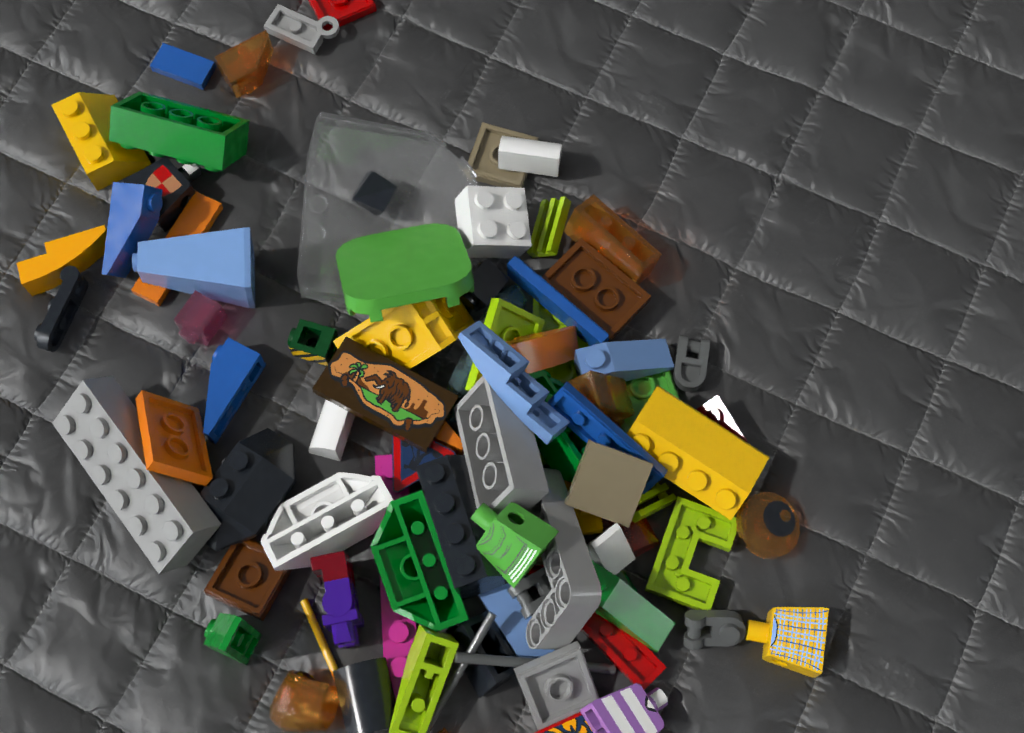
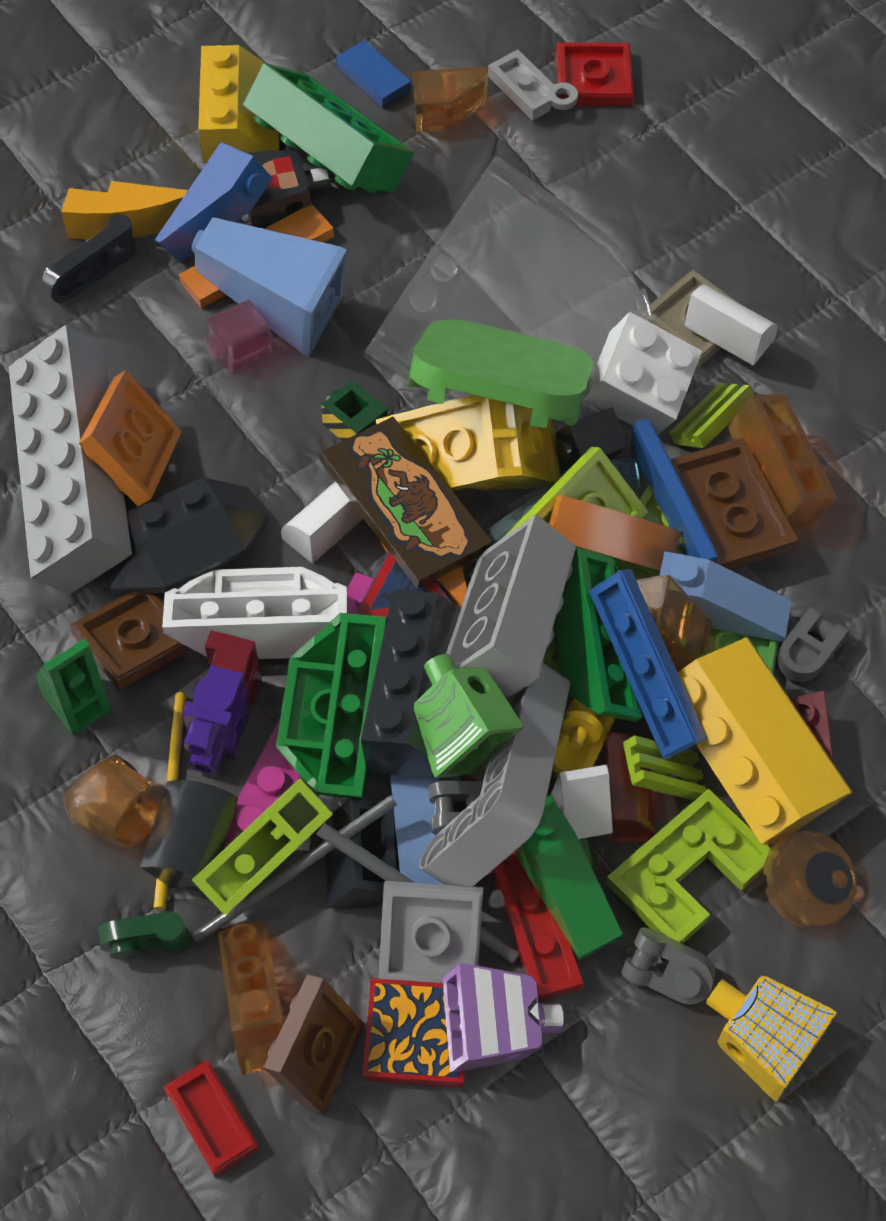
camera: 25 degrees right, 10 degrees down
(230, 380) = (233, 416): blue slope -> none
(374, 193) = (516, 283): black slope -> none
(506, 375) = (558, 531): medium blue slope -> none
(608, 483) = (621, 713): dark tan tile -> none

